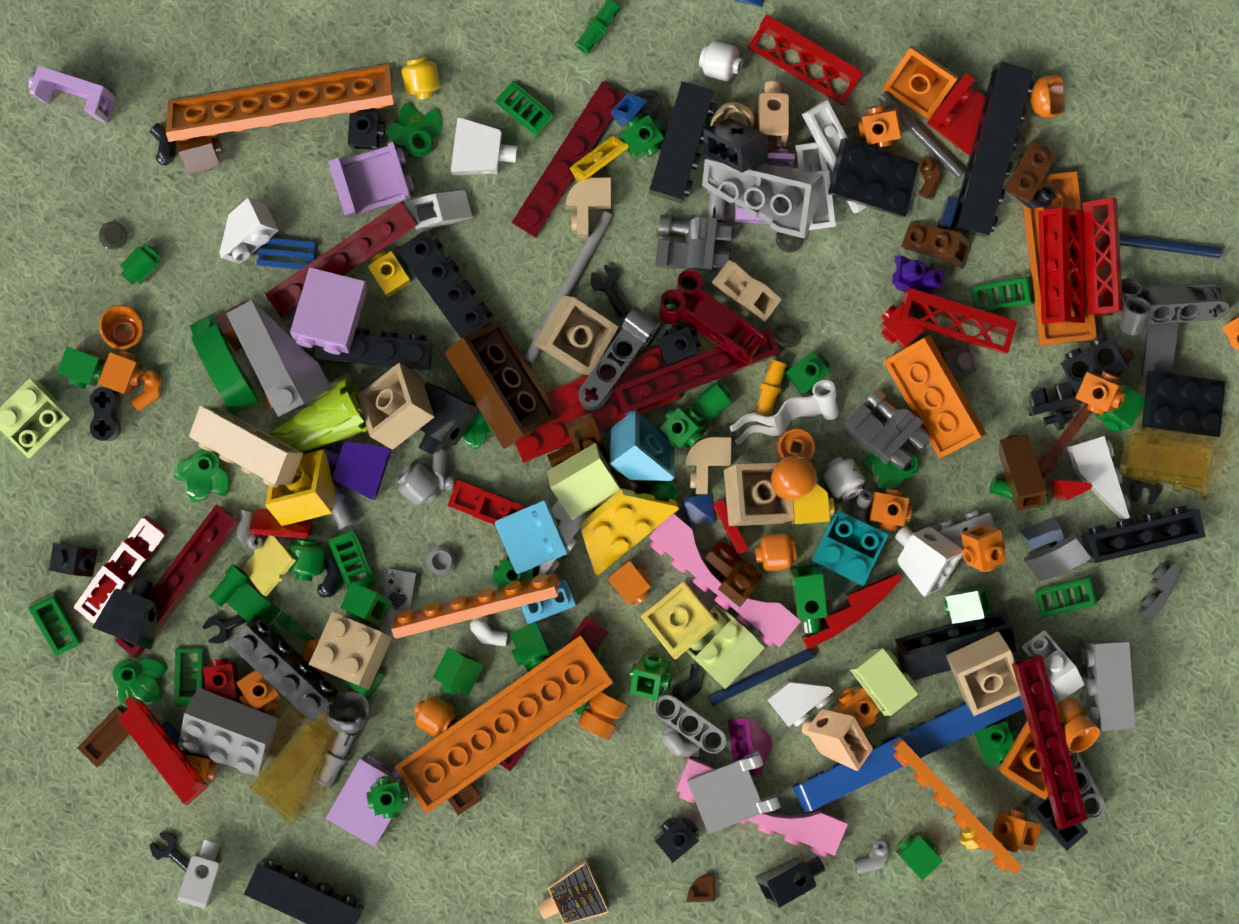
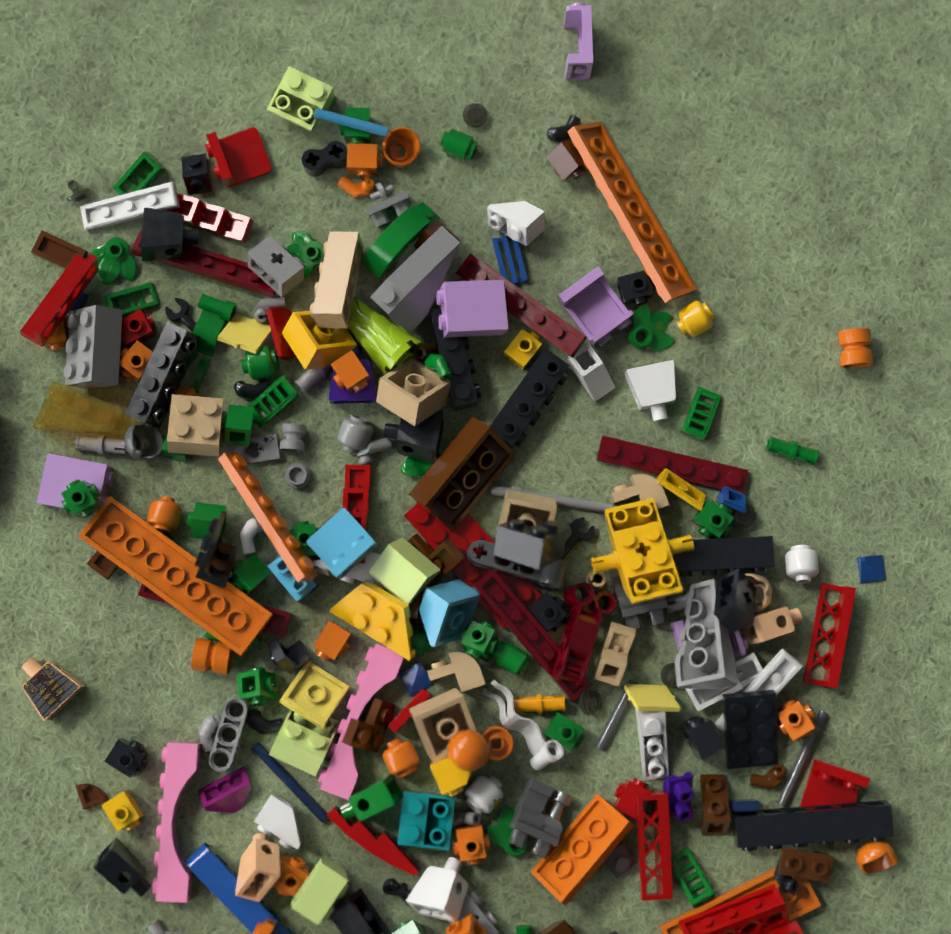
camera: 70 degrees right, 5 degrees down
(51, 695) = (78, 195): none -> clear smoke plate
(69, 507) = (238, 156): none -> red bracket
(76, 372) = (351, 122): none -> dark azure bar
(83, 644) = (129, 206): none -> white tile
(180, 351) = (377, 211): none -> light grey hips
(206, 507) = (276, 266): none -> light grey brick
(352, 466) = (350, 373): none -> orange brick
(358, 375) = (425, 350): none -> dark brown arm
(374, 369) = (438, 363): none -> green arm
(398, 551) = (293, 434): none -> light grey wheel
(499, 673) = (218, 557): none -> black bracket
(604, 337) = (530, 545): none -> brick
(626, 222) = (637, 531): none -> yellow slope
(632, 633) = (288, 658): none -> black bracket
(658, 289) = (596, 586): none -> tan pin
(729, 794) = (178, 790): light grey flag -> none
(731, 860) = (123, 811): none -> yellow brick
(805, 269) = (651, 697): none -> light yellow piece
(809, 312) = (614, 719): none -> dark grey bar
(846, 283) = (653, 744): none -> white slope
(864, 230) = (702, 737): none -> black brick
(905, 606) = (392, 887): none -> black piece
(920, 82) = (846, 741): orange slope -> none

